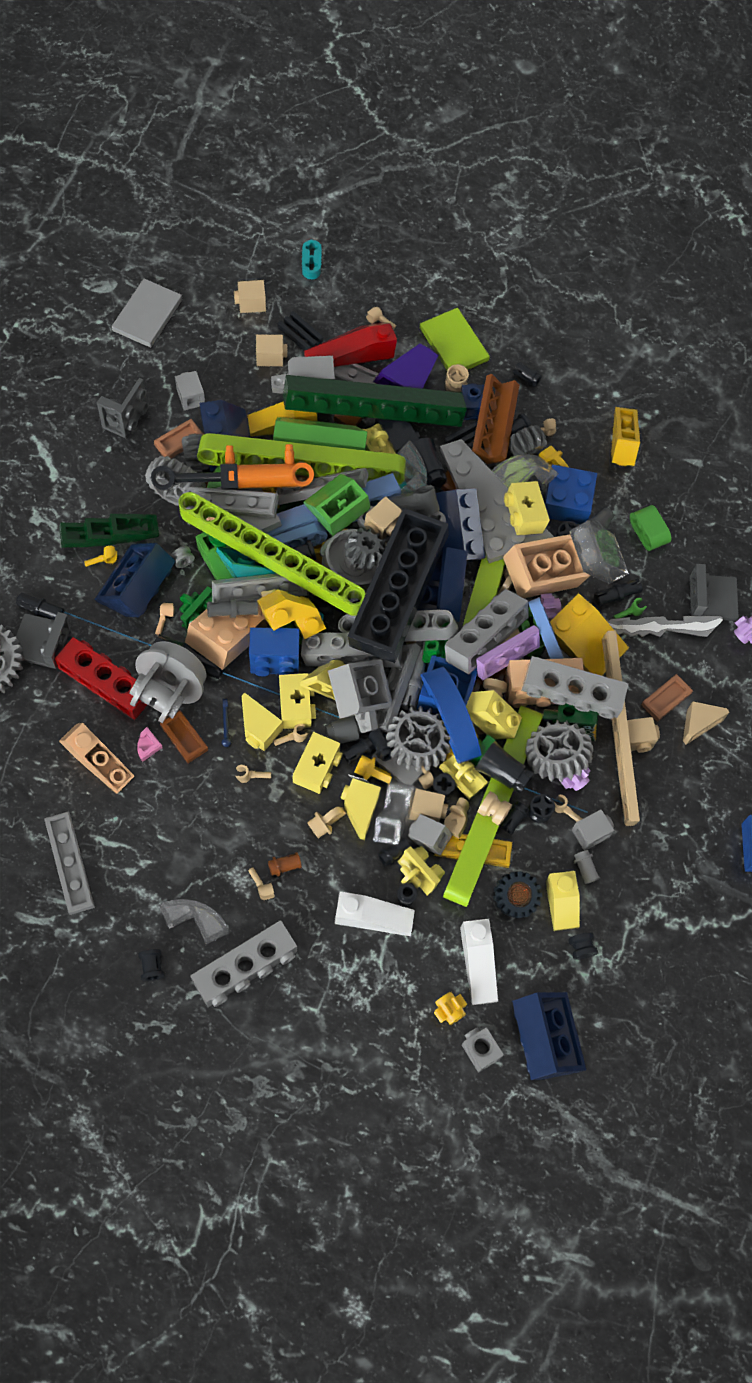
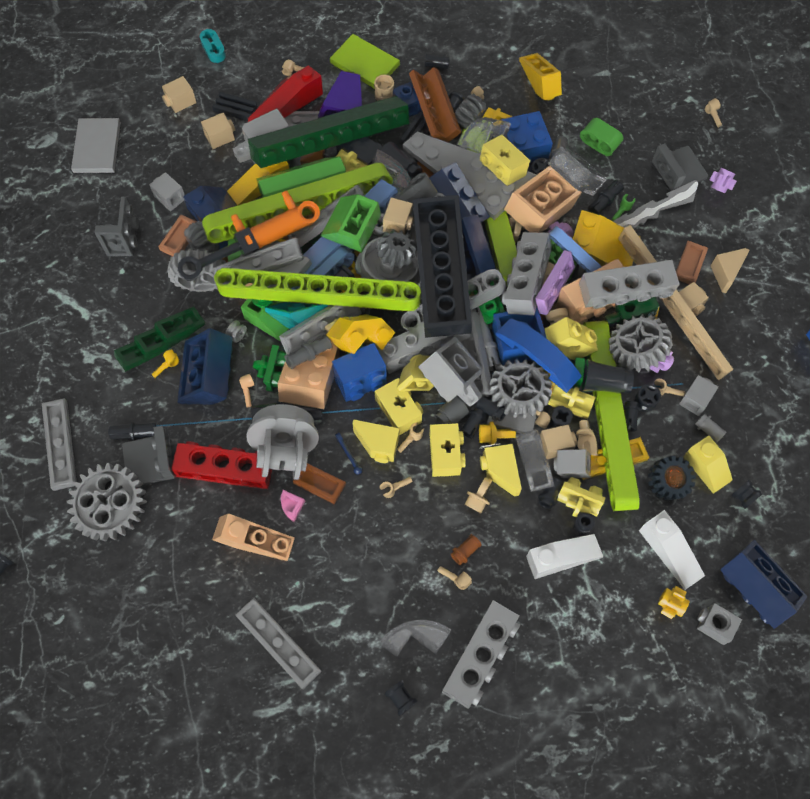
camera: 20 degrees left, 0 degrees up
(493, 807) = (618, 415): tan wheel -> none

